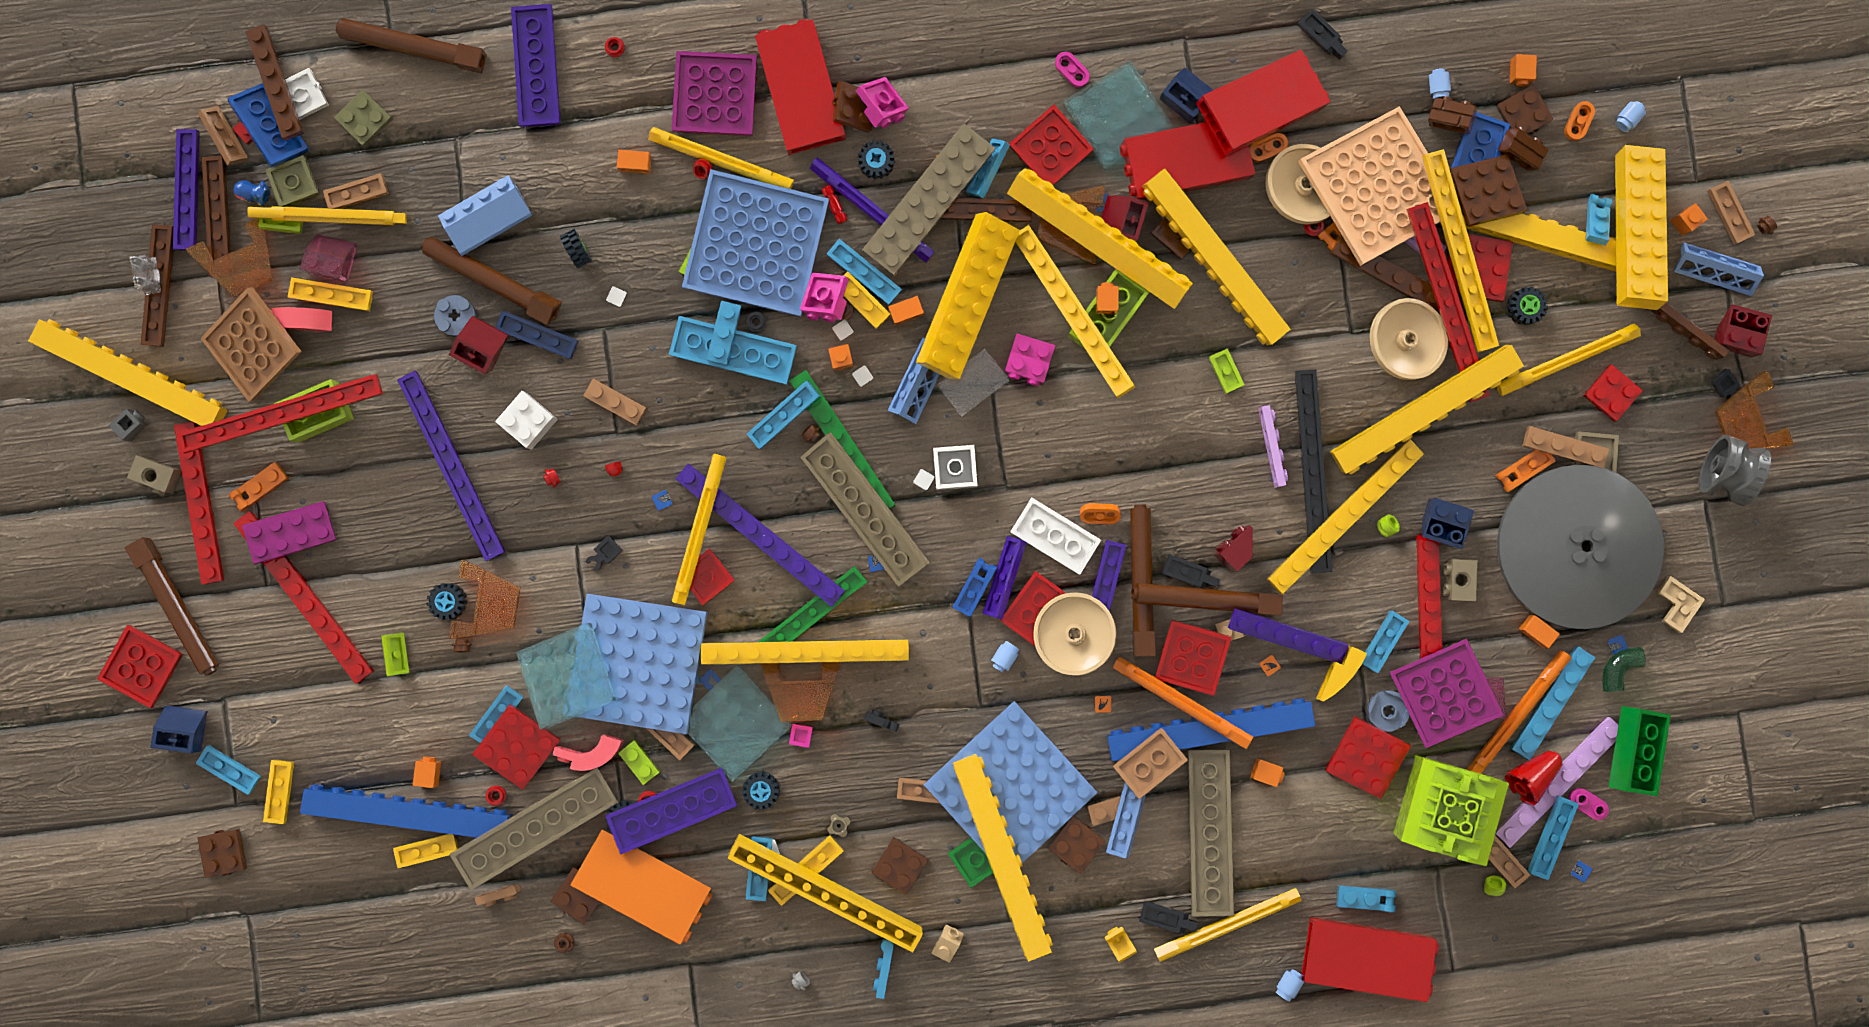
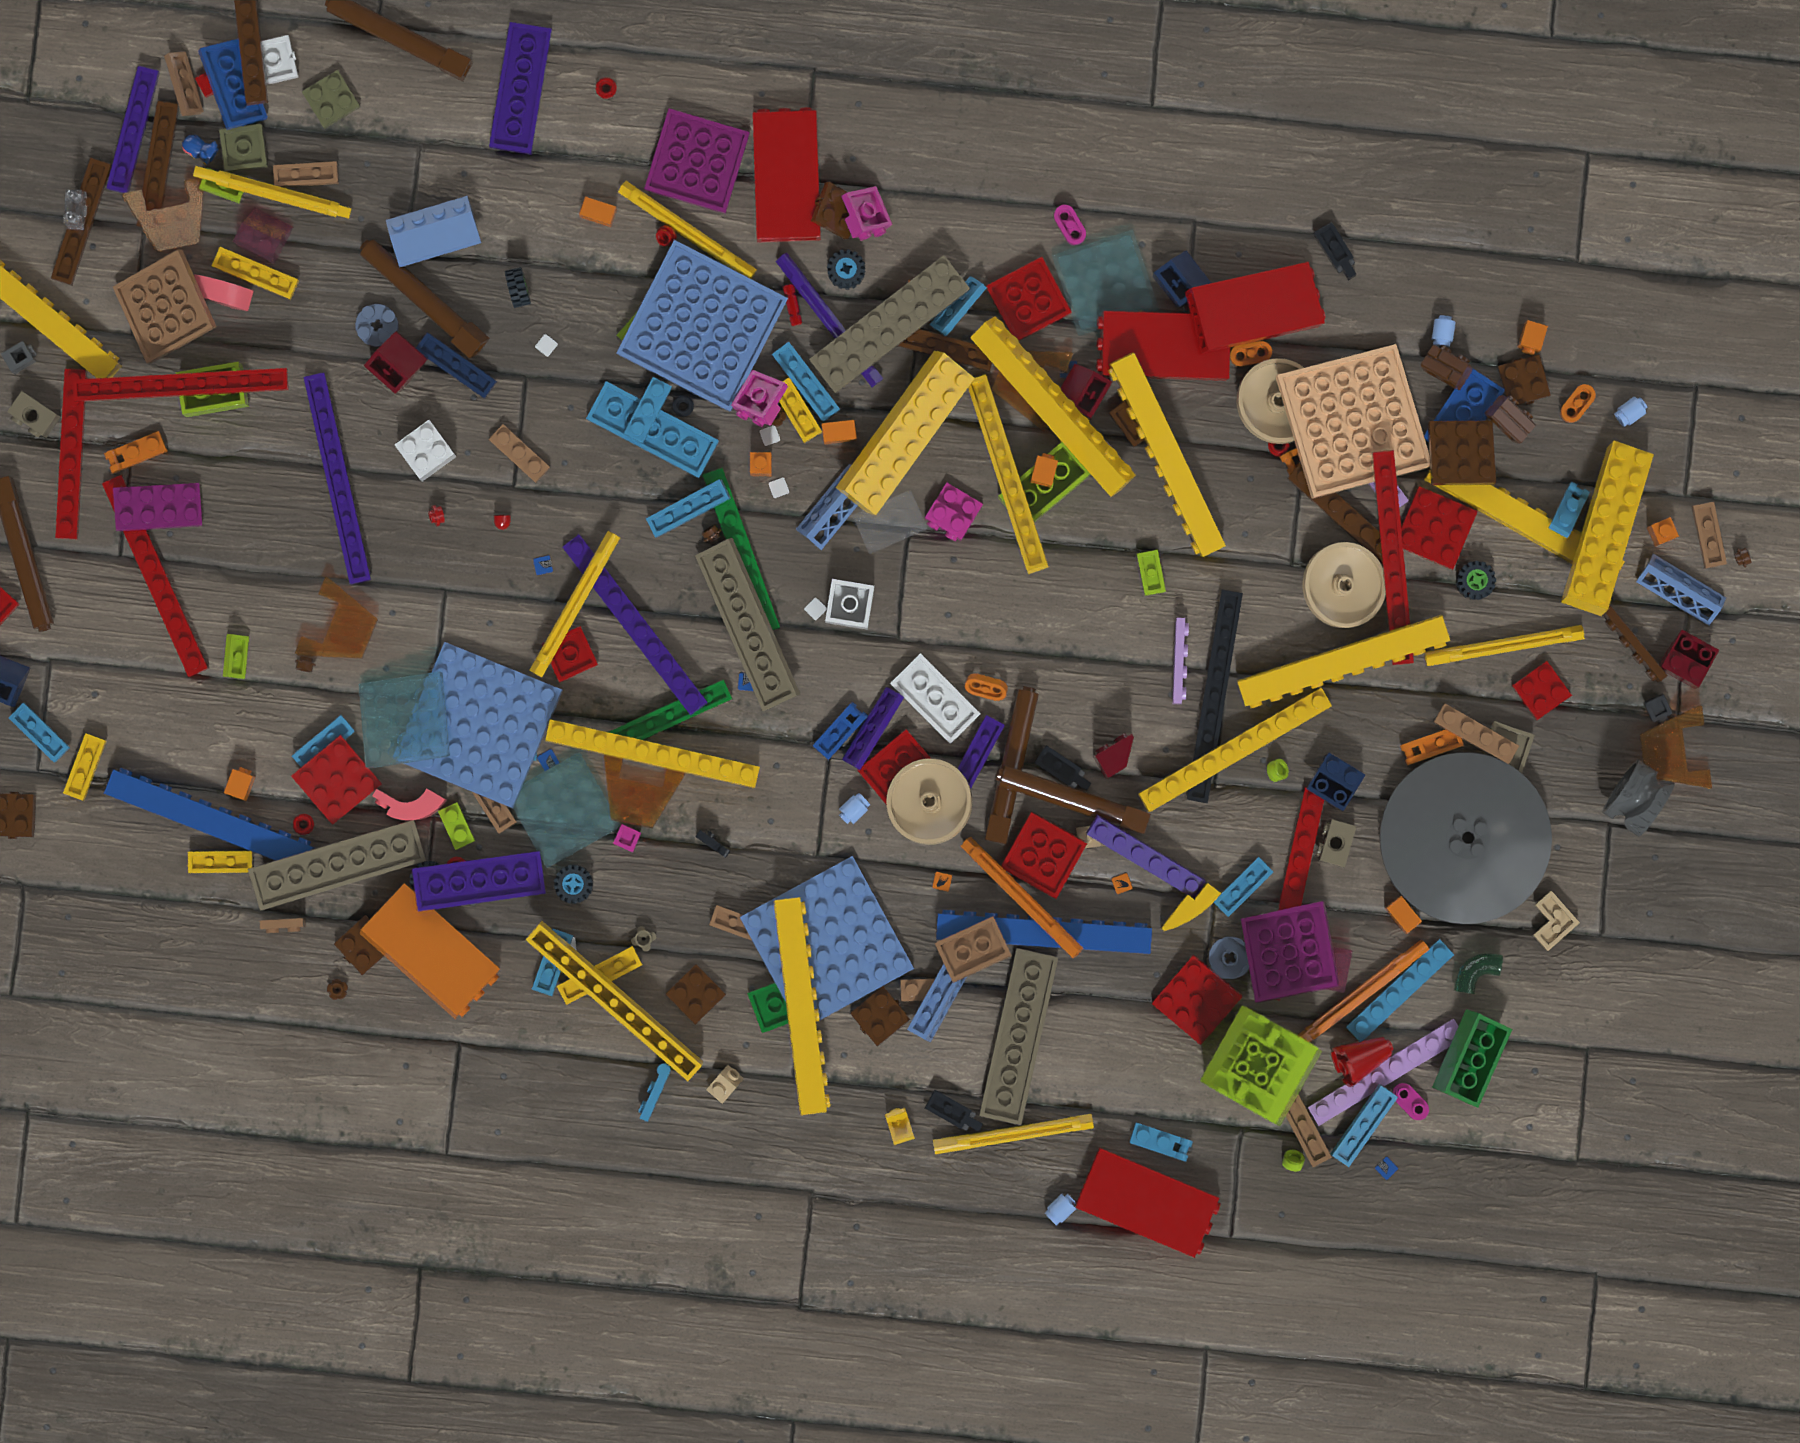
camera: 10 degrees right, 0 degrees up
(439, 601) = (293, 612): black wheel -> none
(606, 551) = (474, 603): black plate -> none
(800, 981) = (567, 1085): light grey plate -> none
(1267, 772) = (1091, 990): orange brick -> none
(1460, 250) = (1418, 507): yellow plate -> none
(1617, 644) = (1481, 947): blue sticker -> none

